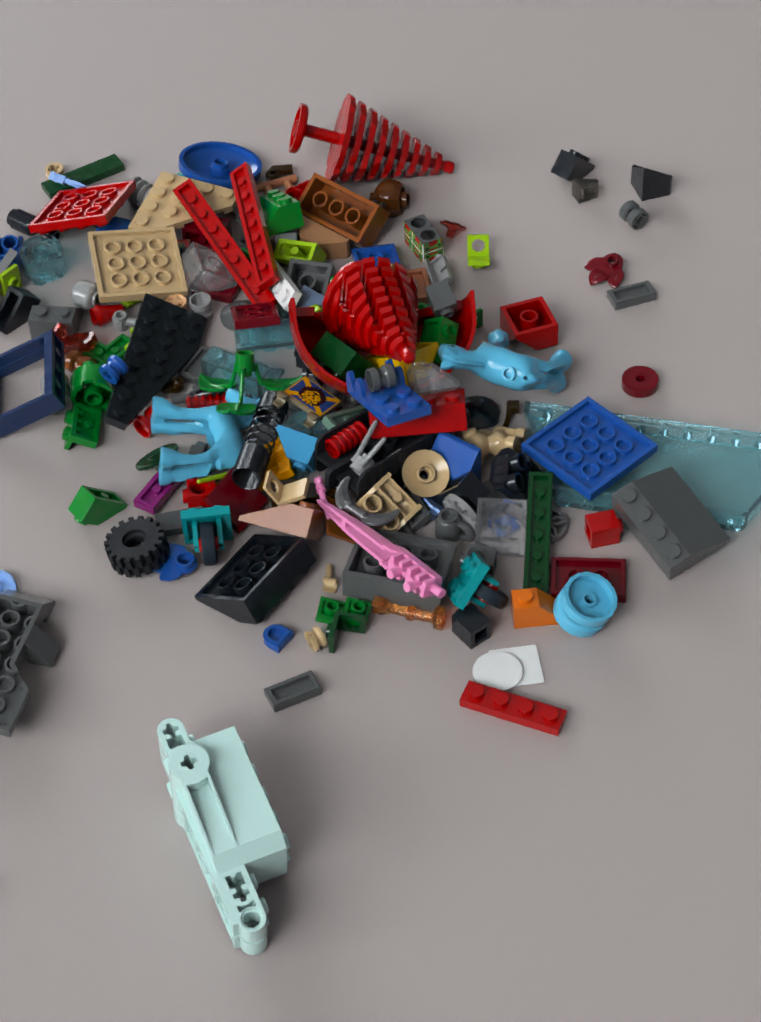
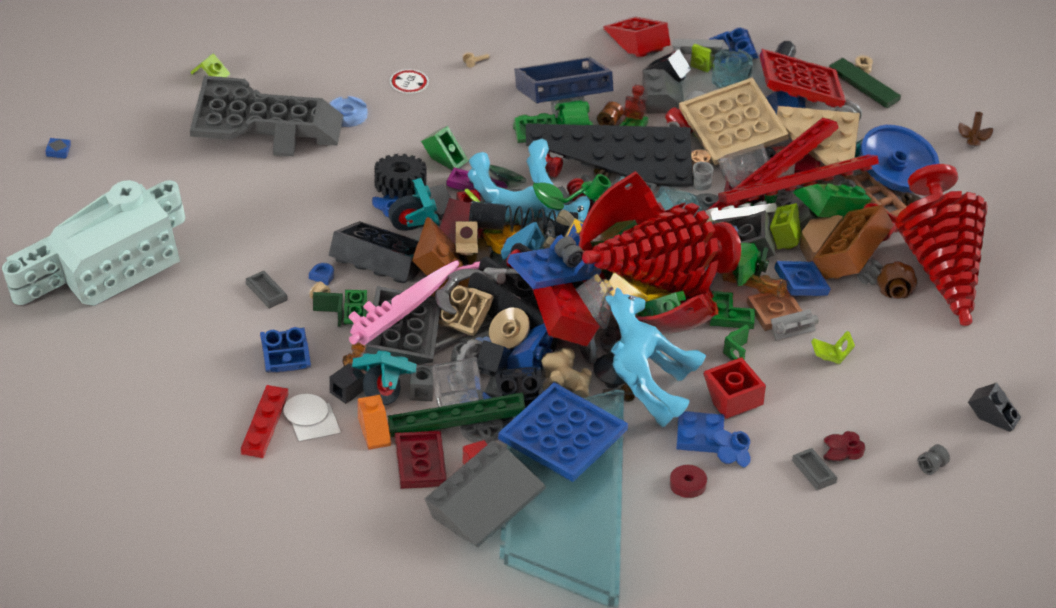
camera: 75 degrees right, 5 degrees down
(58, 178) = (841, 72): light blue piece -> none
(113, 369) = (575, 115): blue wheel -> none
(187, 115) = (975, 133): none -> reddish brown plant
(255, 315) = (673, 193): dark red tile -> none
(406, 675) = (285, 350): none -> blue slope
(422, 248) = (848, 314): piece -> none
(441, 299) = (695, 284): dark grey brick -> none
(452, 228) = (870, 328): clear red plant -> none
(583, 364) = (696, 431): none -> blue plate
(584, 189) = (960, 419): clear smoke slope -> none
(585, 604) = (373, 445): medium azure wheel -> none
(597, 339) = (733, 447): none -> blue plate
(650, 183) = (987, 464): black slope -> none

